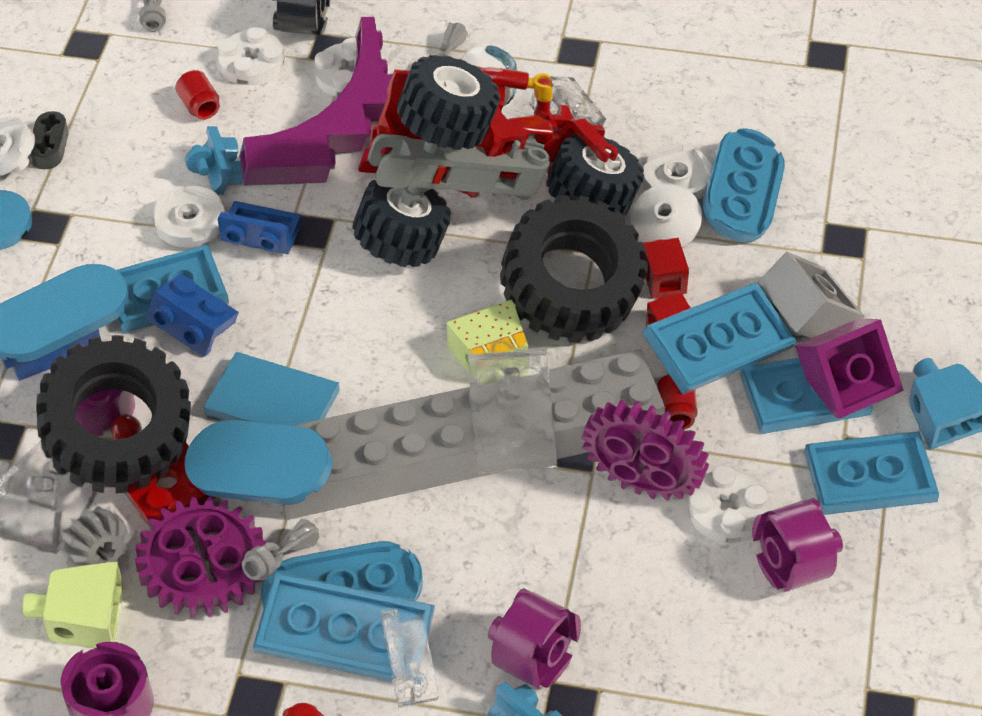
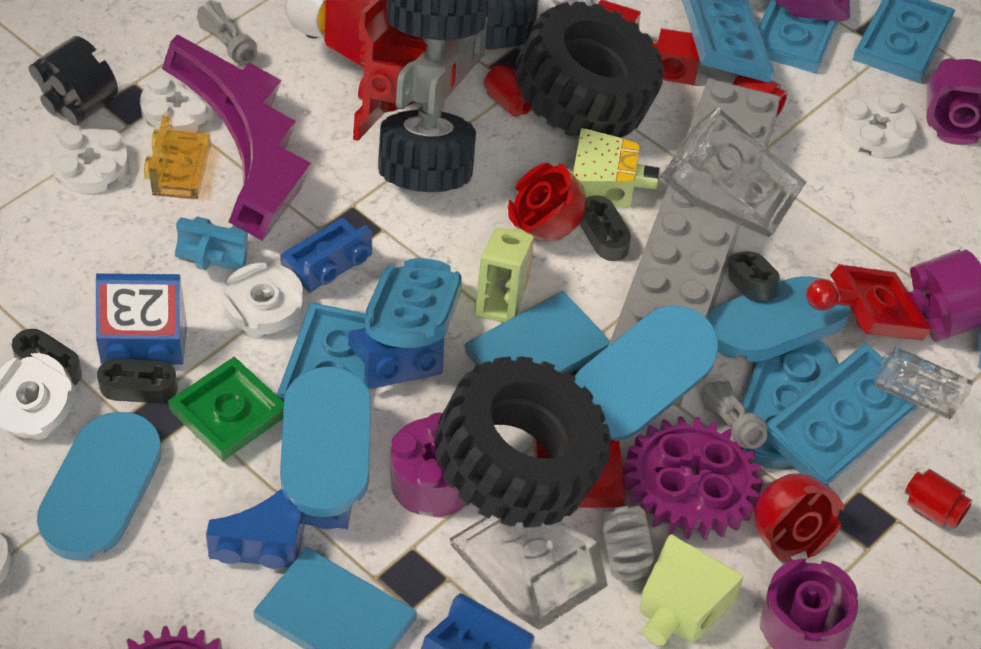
camera: 60 degrees left, 0 degrees up
(58, 197) = (137, 380): none -> pearl dark grey beam
(67, 246) = (227, 408): none -> green plate
(102, 162) = (140, 317): none -> slope
(198, 94) = (107, 217): red brick -> none
(199, 639) = (797, 516): none -> red cylinder
(237, 295) = (413, 303): none -> dark azure tile
(286, 98) = (177, 161): none -> clear yellow bracket
(319, 332) = (504, 257): none -> yellowish green torso
(411, 325) = (548, 202): none -> red cylinder
(418, 534) = (775, 325): none -> dark azure tile
(429, 372) = (610, 225): none -> pearl dark grey beam
(450, 494) = (753, 276): none -> pearl dark grey beam
(462, 590) = (875, 299): none -> red plate
(645, 450) = (827, 123): magenta gear -> none

